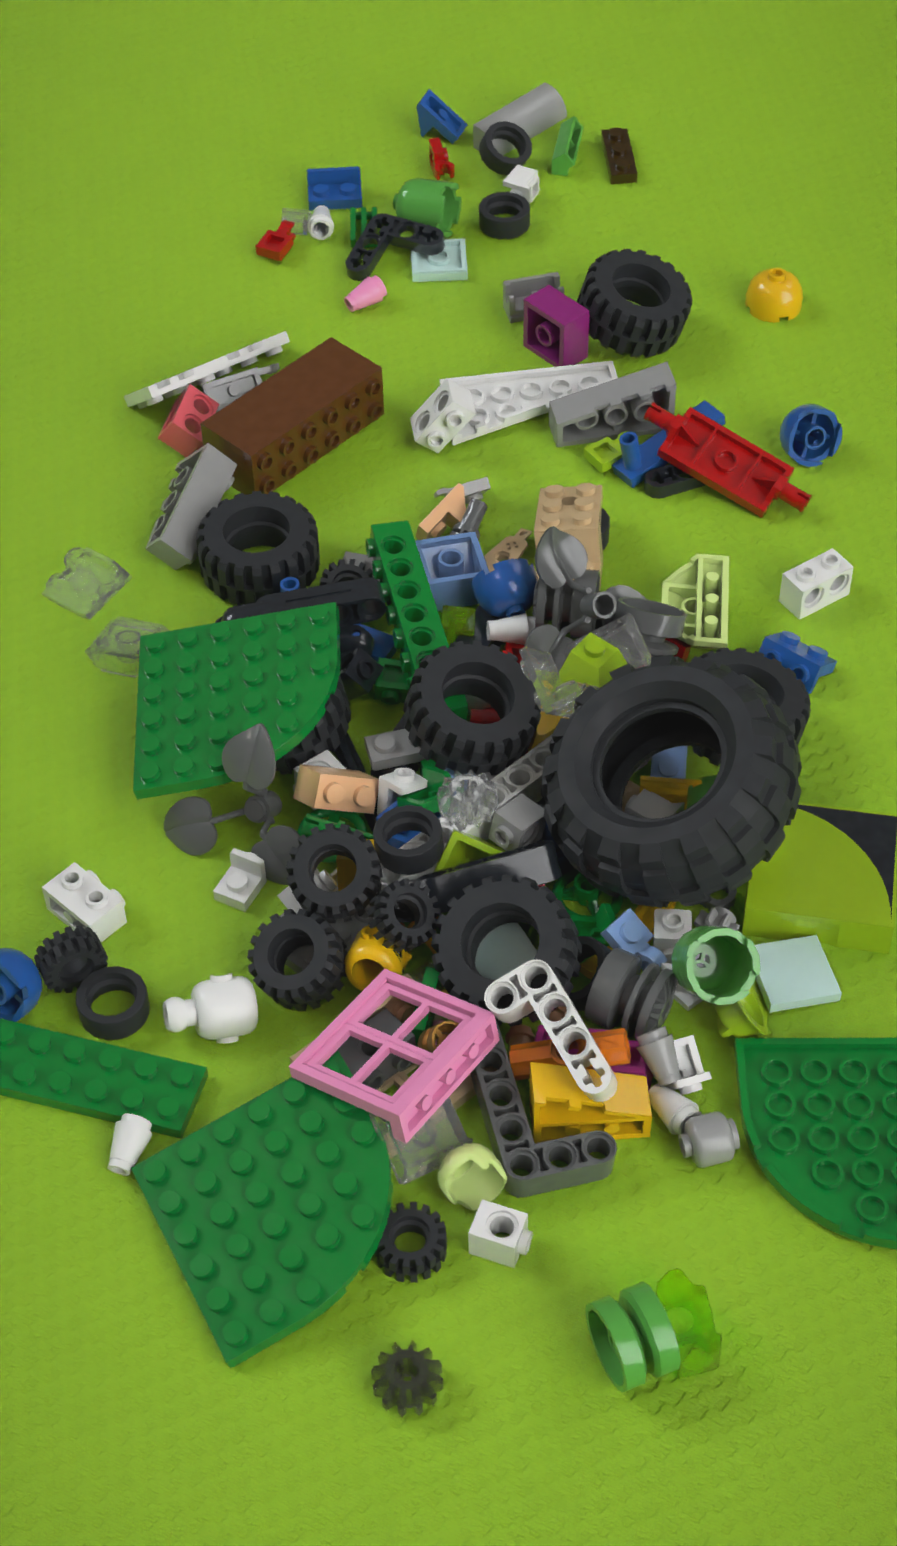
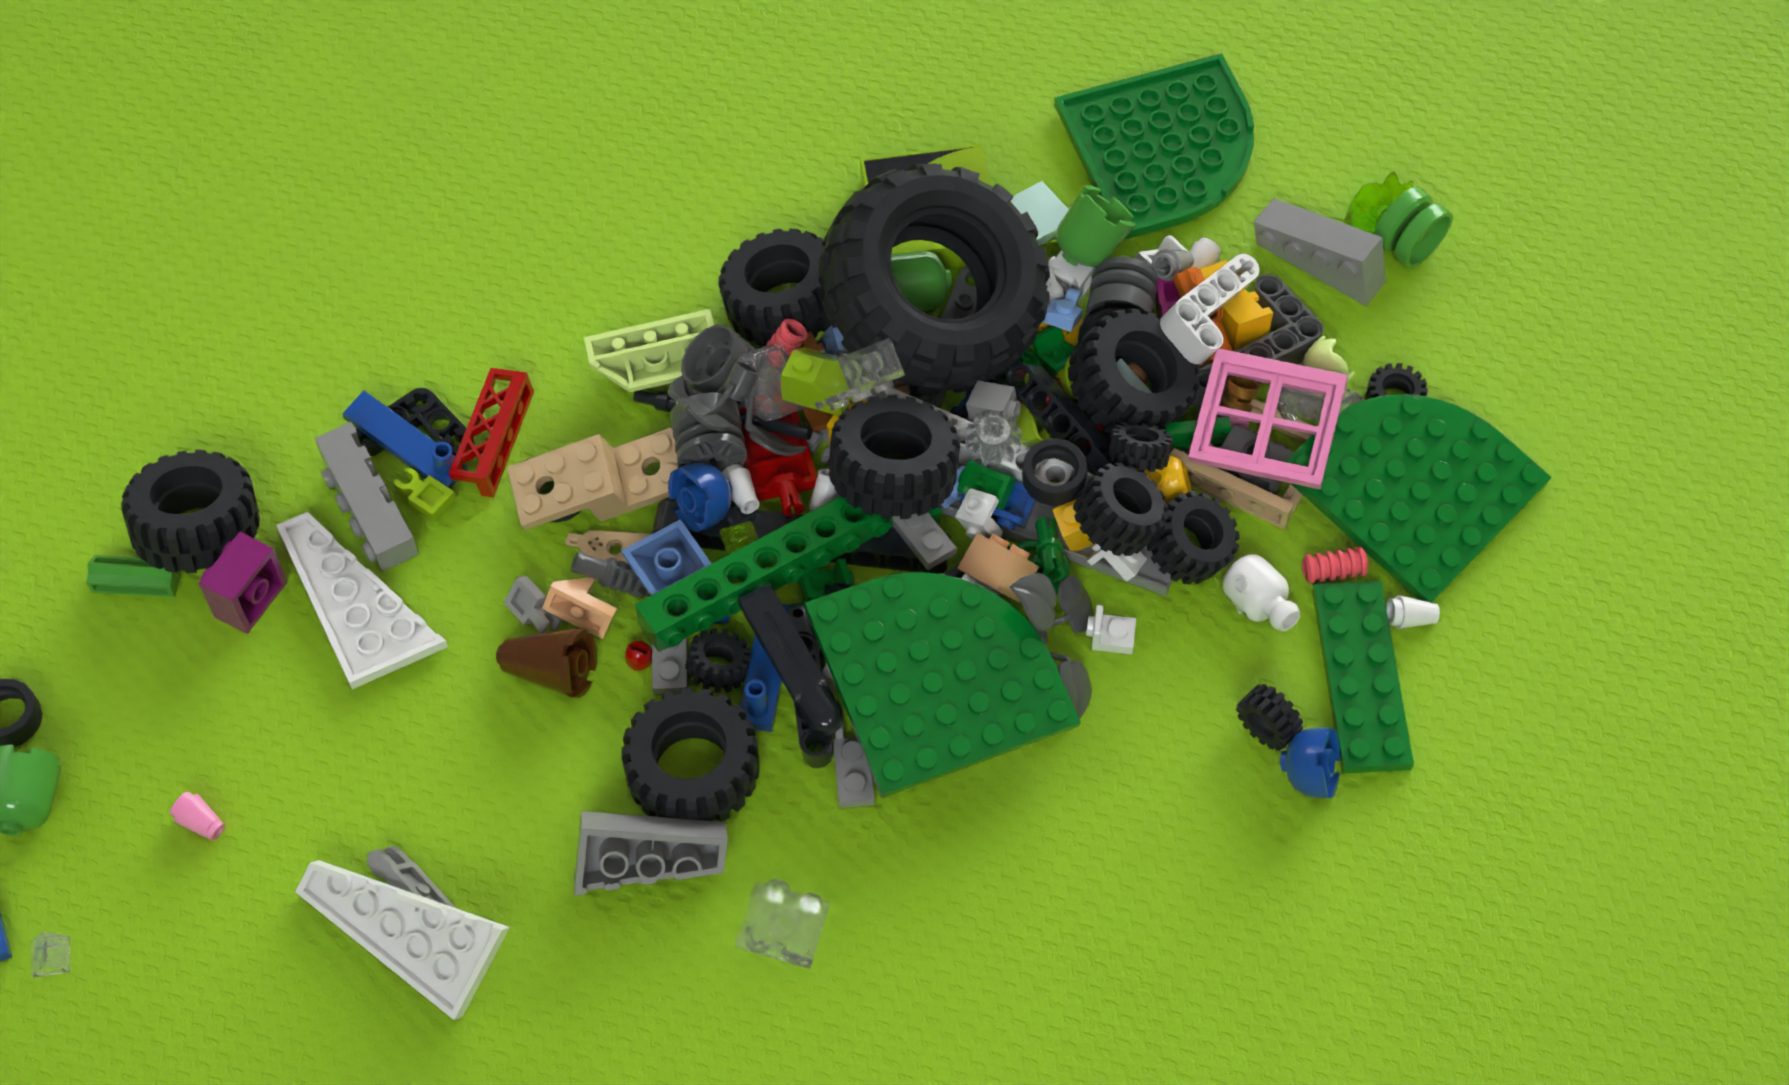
camera: 110 degrees left, 10 degrees up
(82, 900) = (1196, 743): white brick -> none
(118, 1025) = (1295, 657): black tyre -> none
(119, 645) = (855, 846): clear slope -> none
(183, 425) = (504, 905): coral brick -> none
(218, 1090) = (1335, 565): none -> coral piece
(277, 244) = (108, 958): red plate -> none
(296, 416) = (470, 794): reddish brown brick -> none
(320, 223) = (57, 917): white cone -> none
(363, 216) = (46, 865): green tile -> none
(395, 489) = (551, 660): none -> reddish brown cone
(407, 1363) = (1504, 360): clear smoke gear -> none
(425, 240) = (80, 818): black beam -> none
(442, 415) = (425, 648): white brick -> none
(445, 266) = (102, 765): light aqua tile -> none
(495, 1218) = (1362, 339): white brick -> none
(518, 289) = (173, 636): light grey hinge -> none
(640, 1233) = (1324, 248): none -> light grey wedge
(655, 503) = (502, 435): none -> red fence
(709, 1139) = (1221, 227): light grey head -> none
(725, 461) = (431, 378): red plate -> none
(774, 295) = (118, 408): yellow cylinder -> none
(804, 660) = (681, 280): blue bracket -> none
(810, 434) = (359, 326): blue cylinder -> none
(815, 583) = (579, 280): white brick -> none

